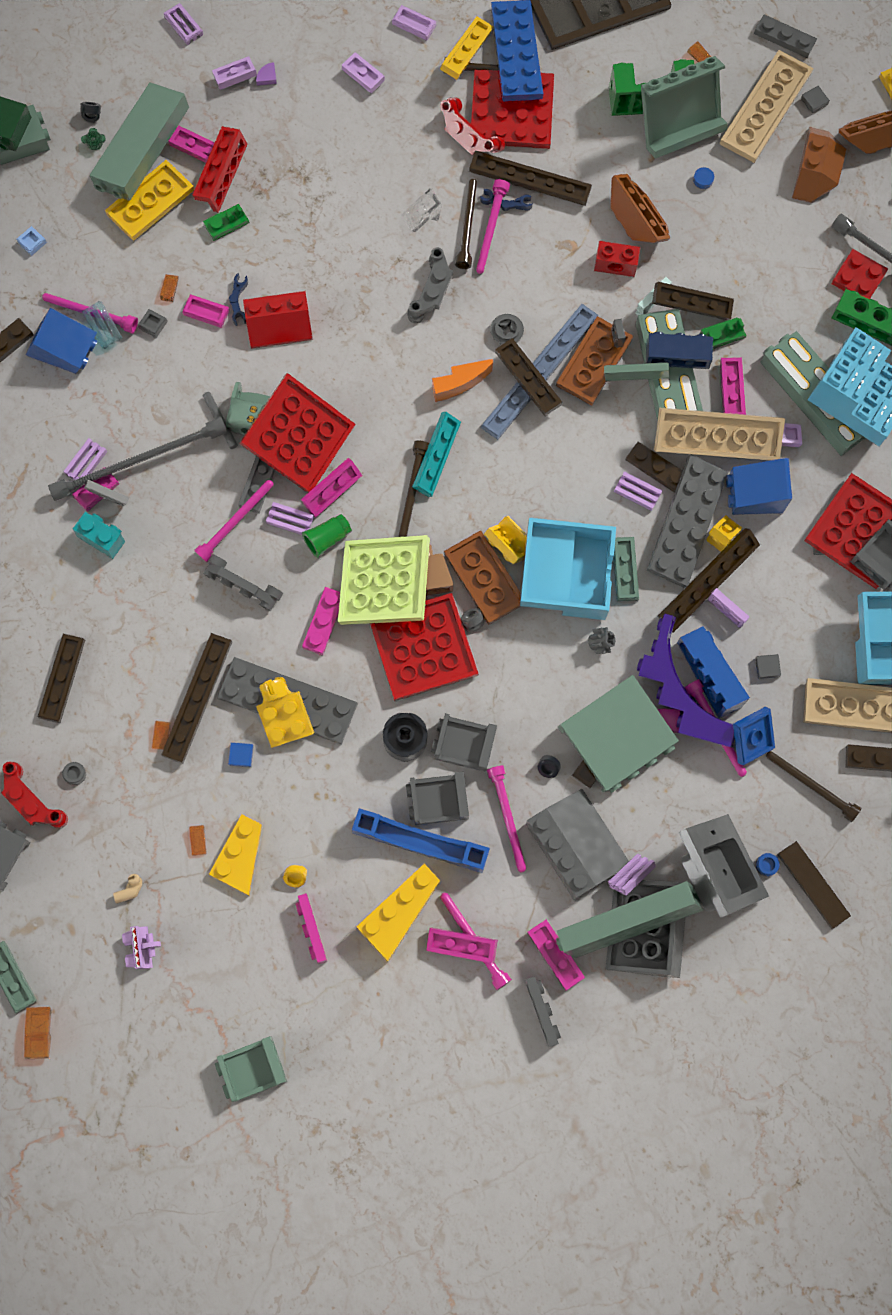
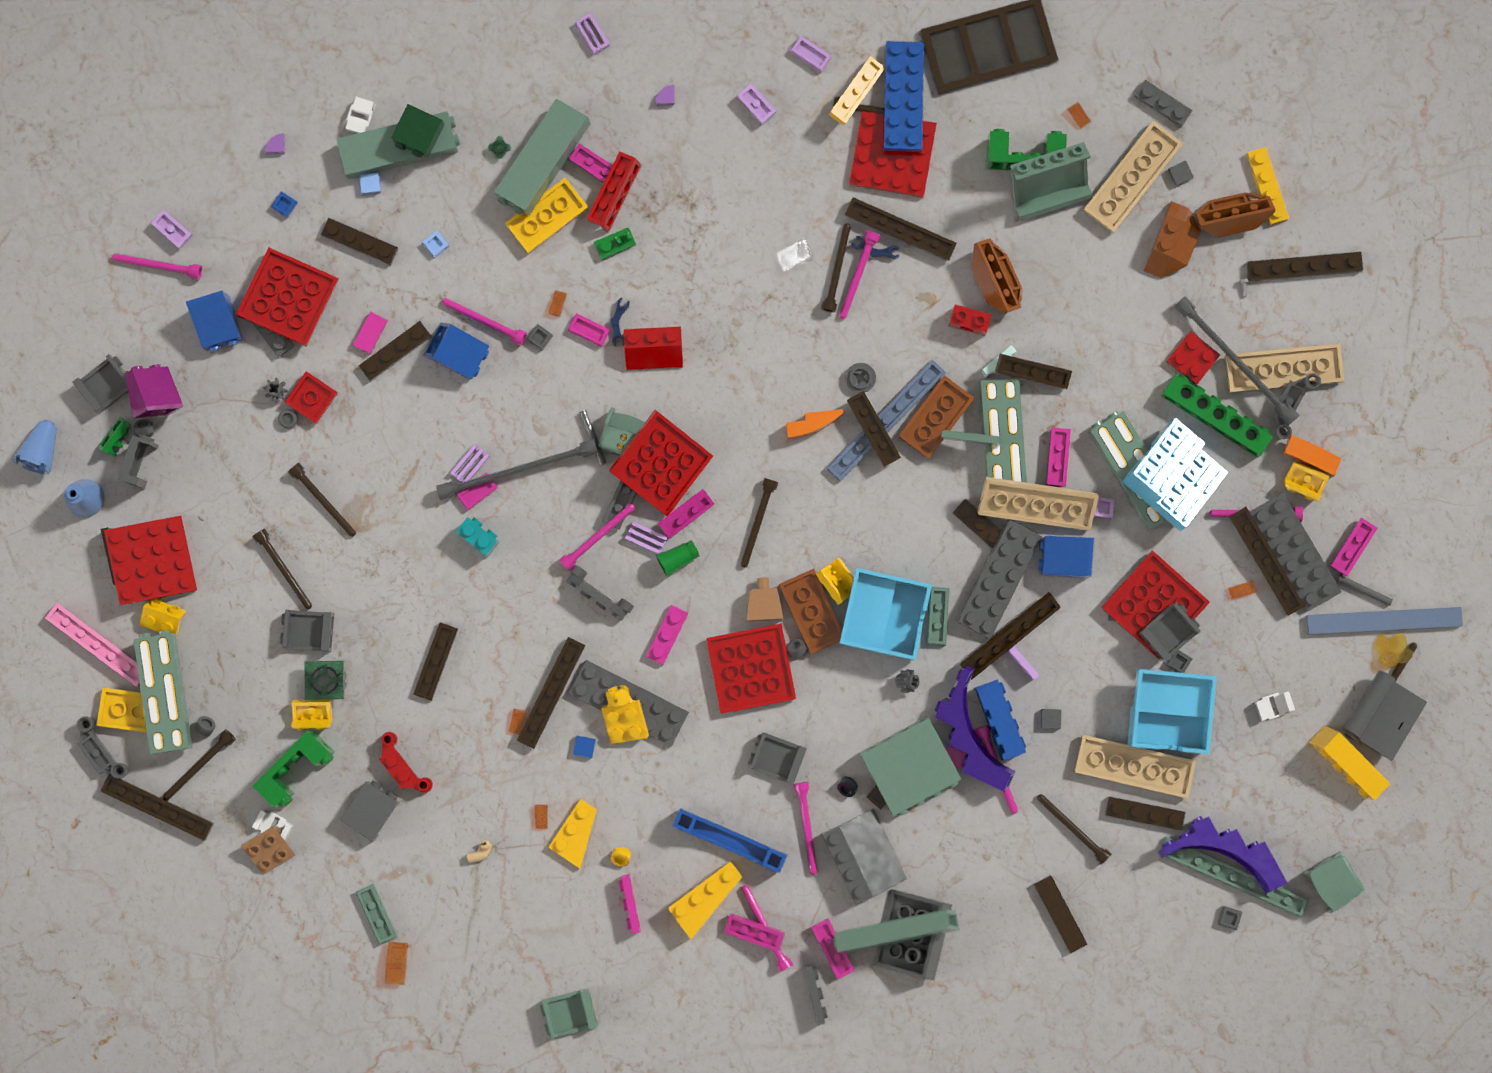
camera: 15 degrees right, 10 degrees up
(74, 773) = (441, 746): dark grey tile -> none
(90, 108) = (499, 118): black tile -> none
(106, 493) = (487, 499): light grey tile -> none
(111, 340) = (494, 319): clear light blue tile -> none
(143, 947) = (488, 901): lavender hips -> none
(234, 73) = (636, 92): lavender plate -> none
(384, 580) = (723, 607): yellowish green plate -> none
(405, 724) = (737, 750): black brick -> none
(434, 288) = (799, 331): dark grey plate -> none
(436, 454) = (783, 492): teal tile -> none
(438, 799) = (748, 804): dark grey panel -> none
(465, 132) = (845, 176): plate -> none
(618, 333) = (960, 397): dark grey tile -> none
(628, 877) = (903, 887): lavender tile -> none
(657, 492) = (962, 538): lavender tile -> none
(680, 350) = (1012, 421): dark blue brick -> none
(703, 178) = (1063, 244): blue tile -> none
(721, 867) = (980, 894): dark grey piece -> none
(723, 533) = (1030, 592): yellow slope -> none
(725, 332) = (1058, 401): green plate -> none
(754, 735) = (1027, 782): blue tile -> none
(767, 864) = (1023, 892): blue tile -> none

